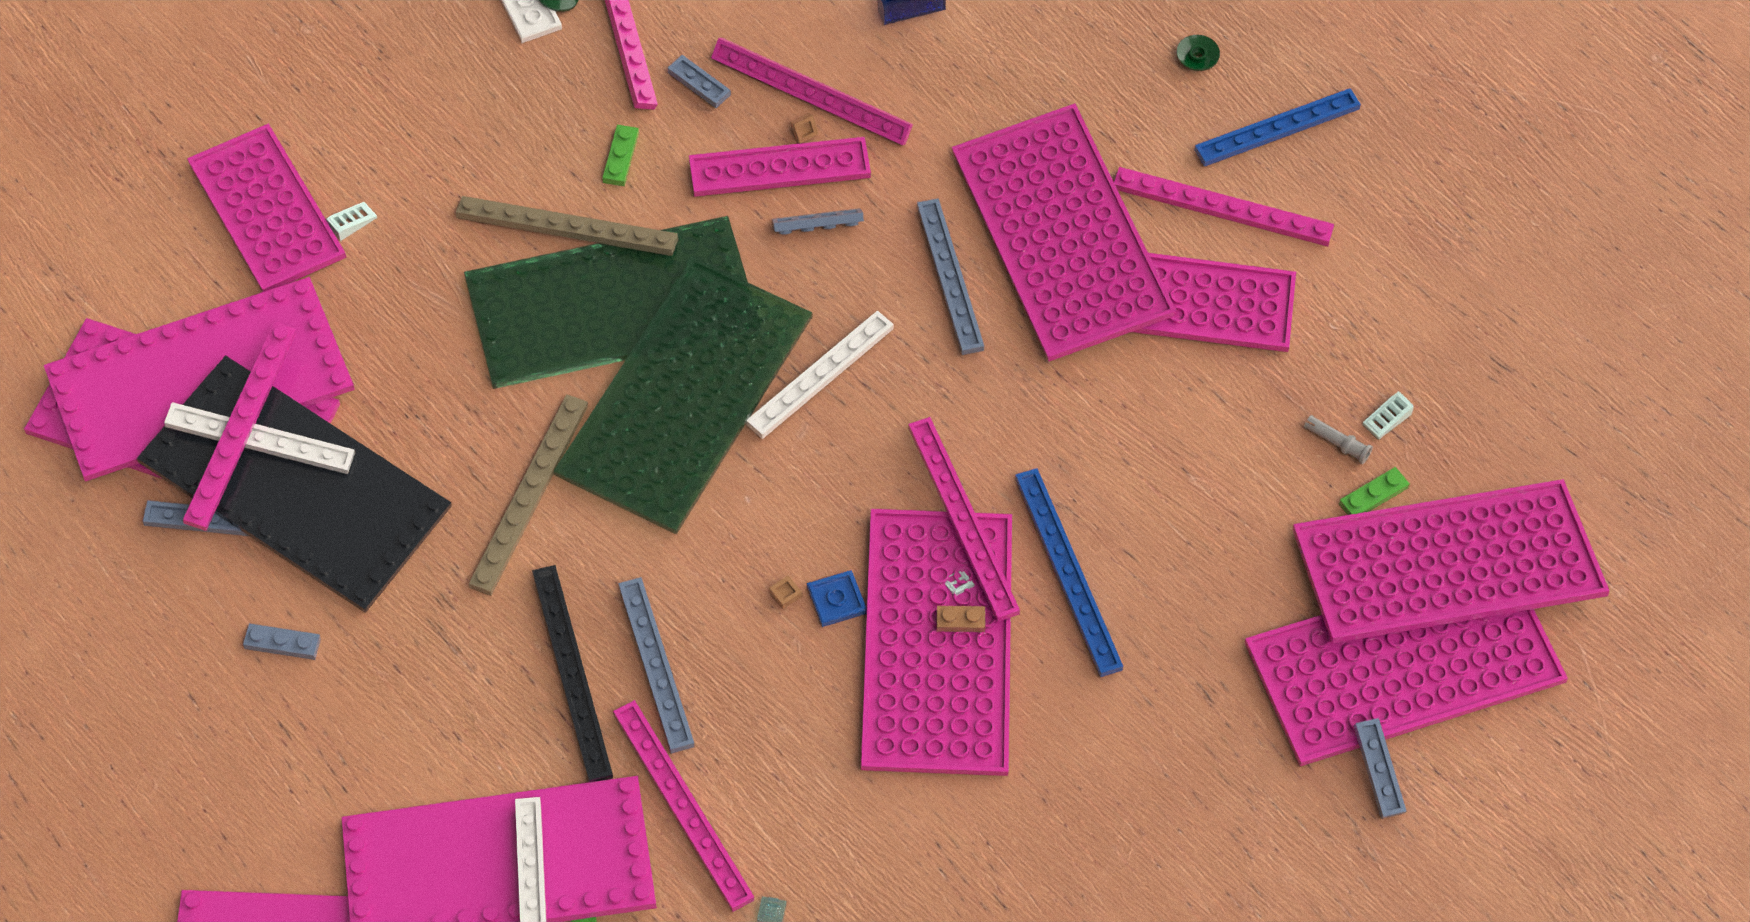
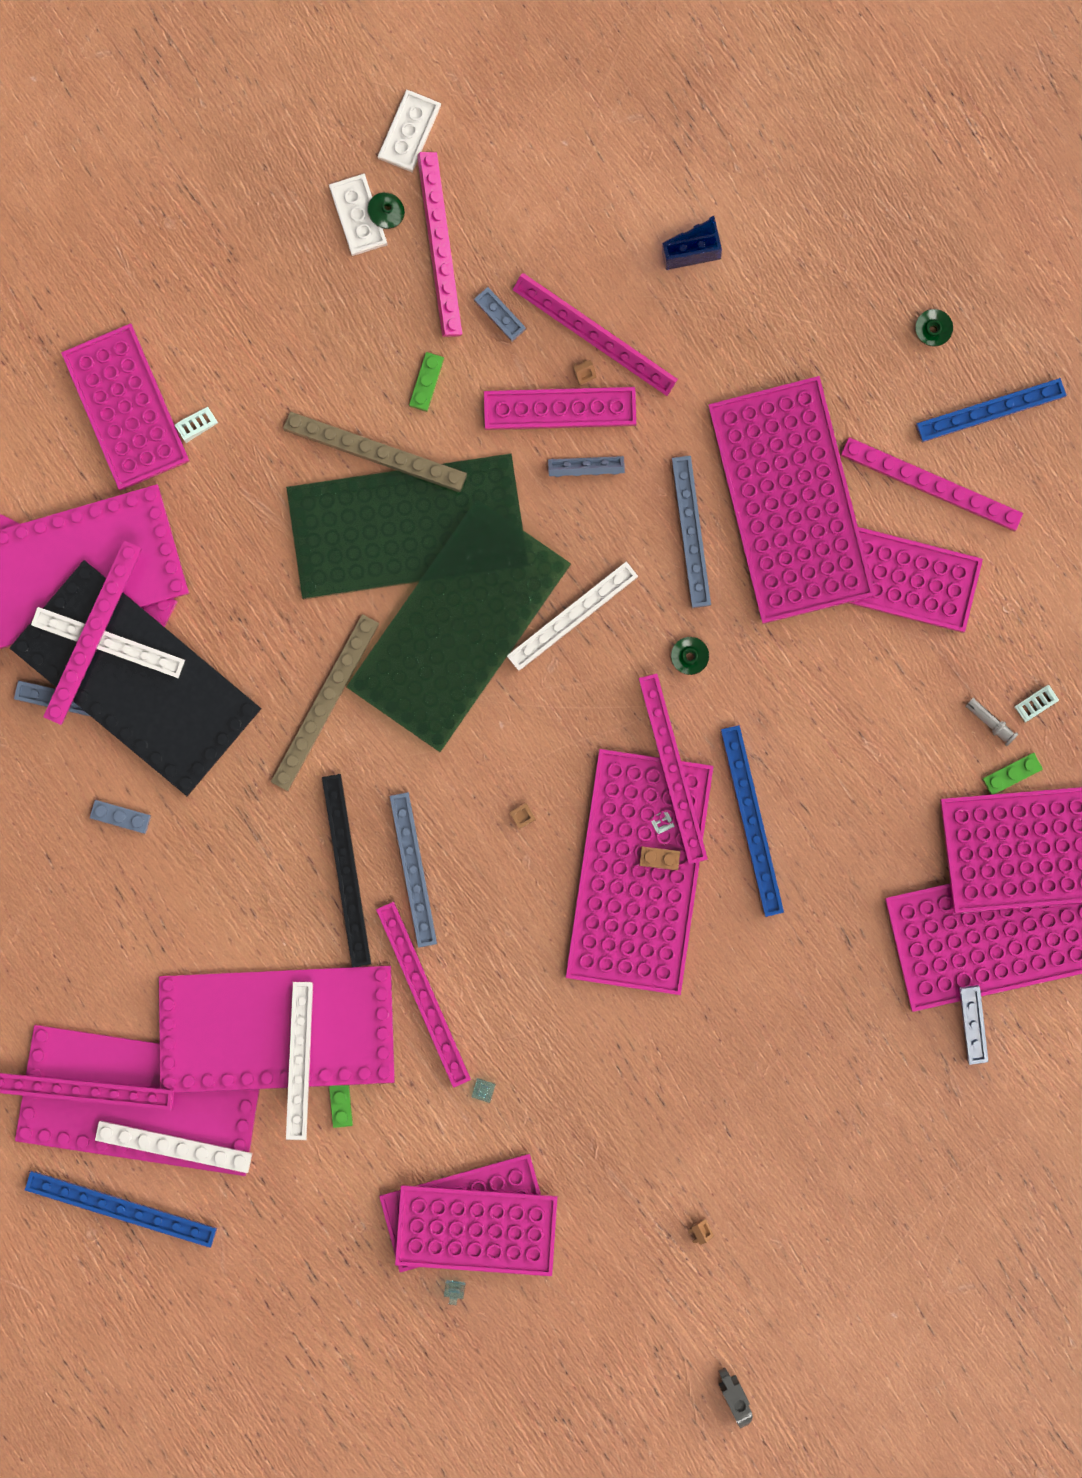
camera: 10 degrees right, 25 degrees up
(836, 598) = (563, 824): blue tile -> none
(967, 393) = (697, 649): none -> dark green dish

